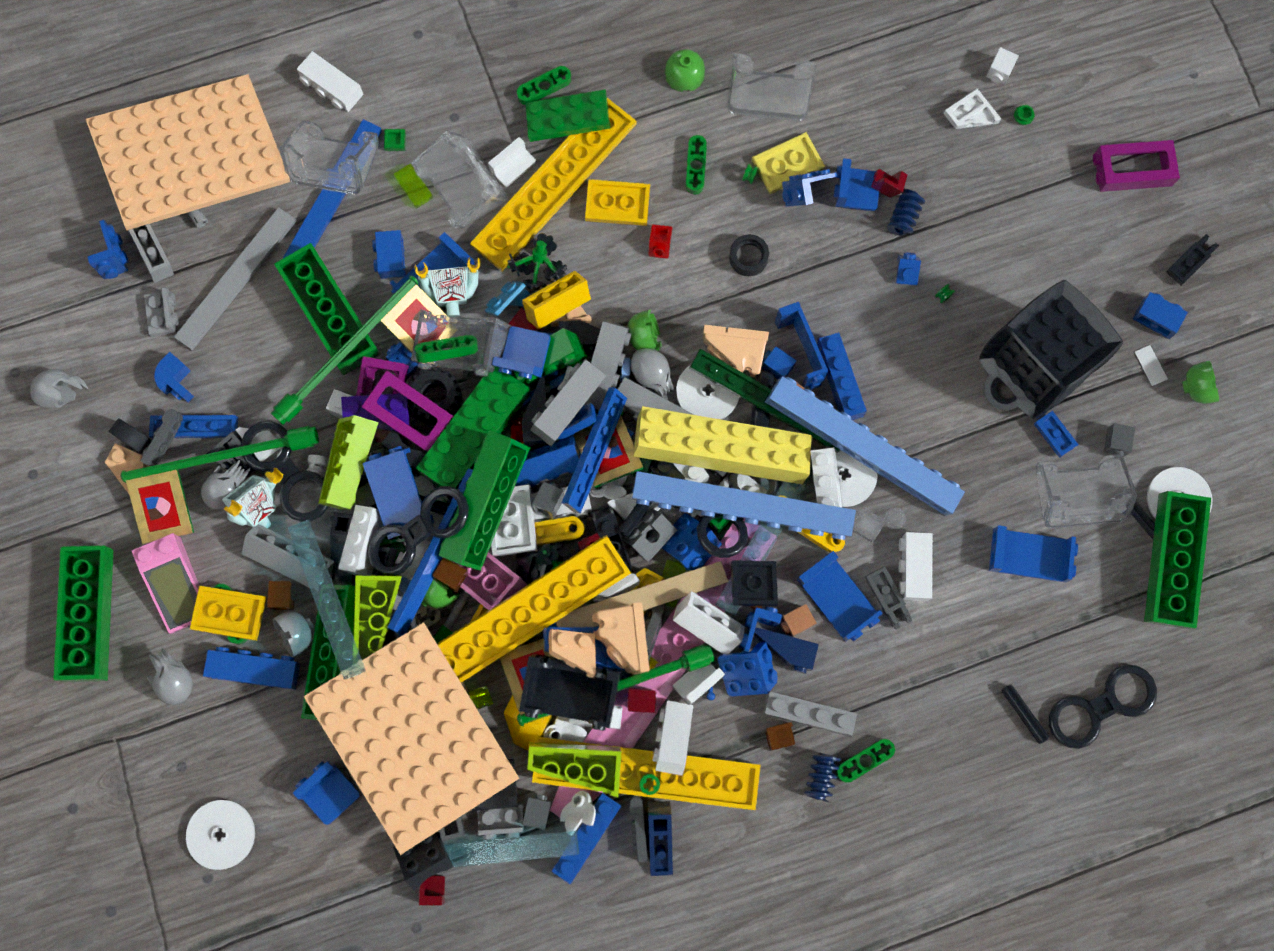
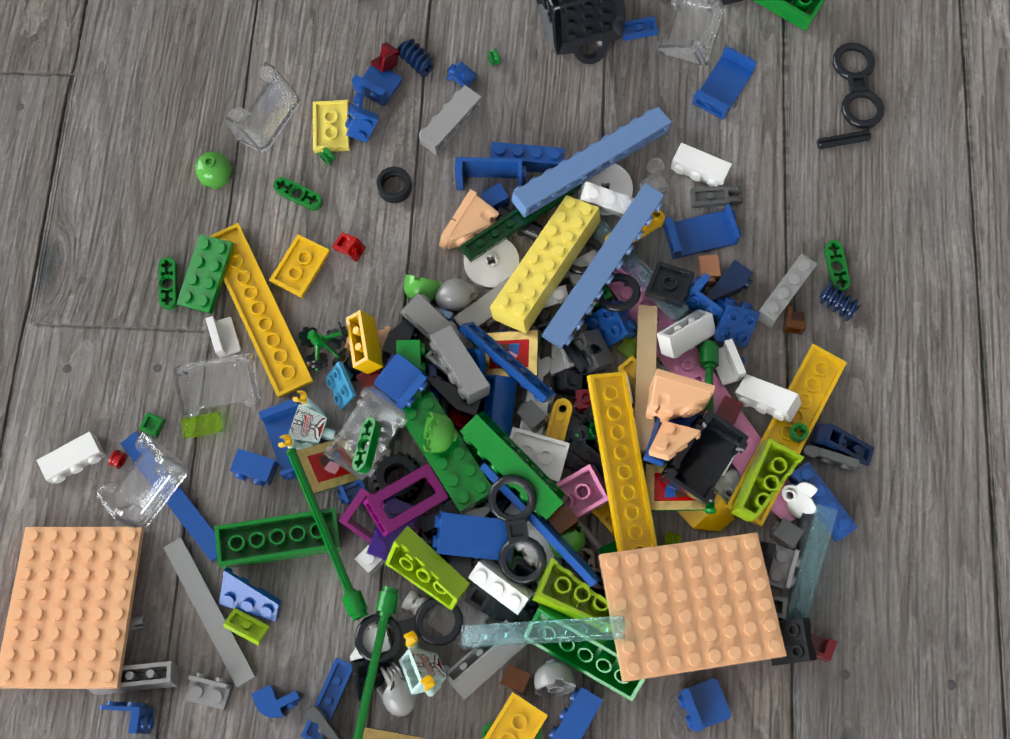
camera: 60 degrees left, 5 degrees down
(233, 319) = (246, 626): none -> lime plate
(259, 302) = (245, 597): none -> wing
(346, 124) = (117, 459): none -> red bush
(482, 412) = (439, 433): none -> bright green cylinder
(849, 279) = (450, 120): none -> light grey brick

